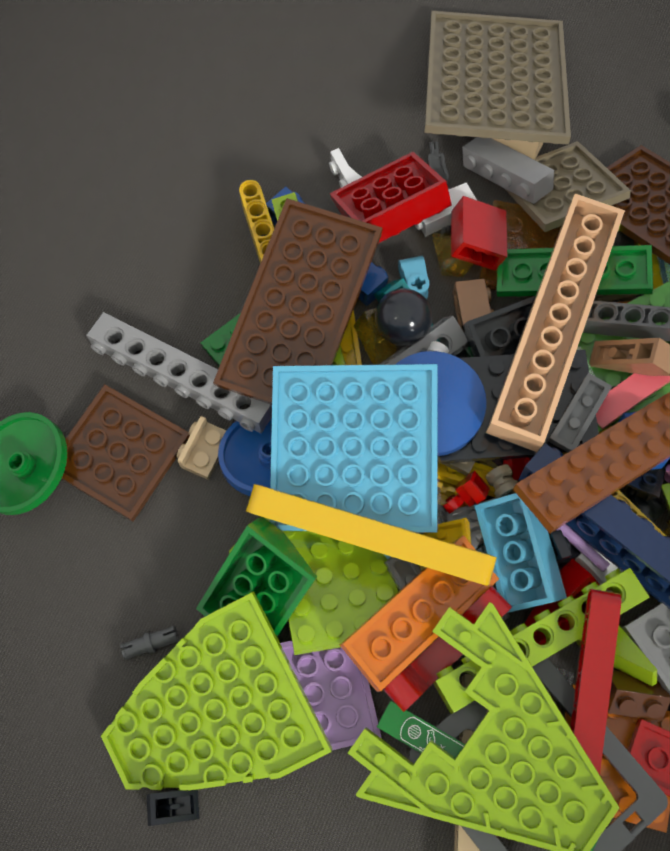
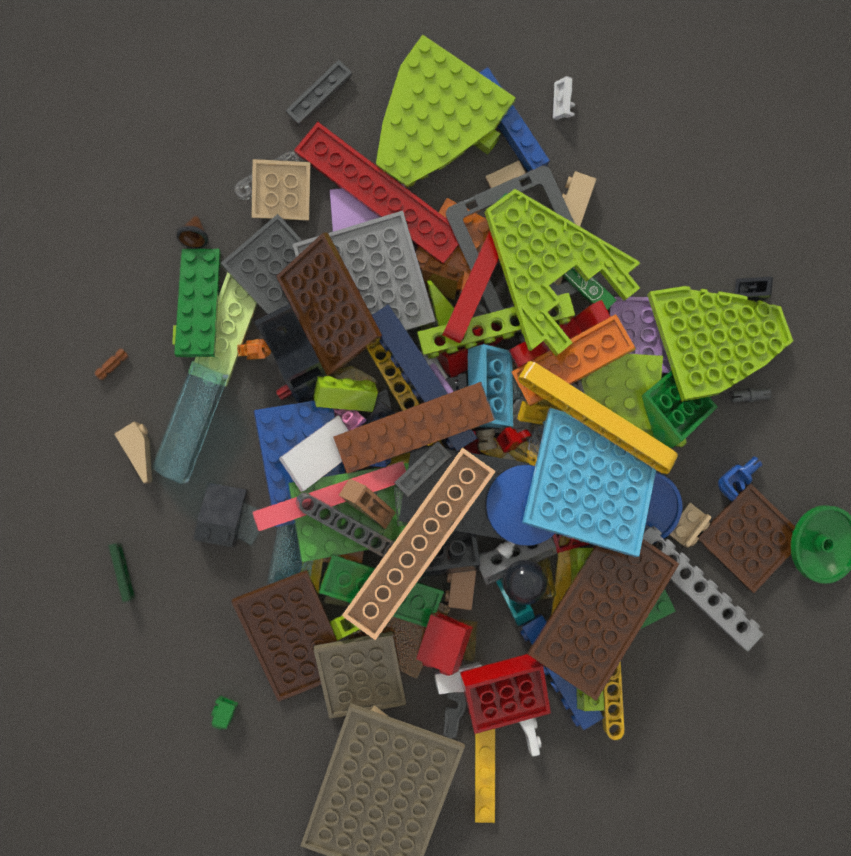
camera: 170 degrees left, 15 degrees up
(149, 527) = (739, 476): none -> blue piece
(382, 122) = (485, 777): none -> yellow plate
(415, 274) = (498, 628): medium azure piece -> none
(508, 168) = (399, 696): light grey brick -> none

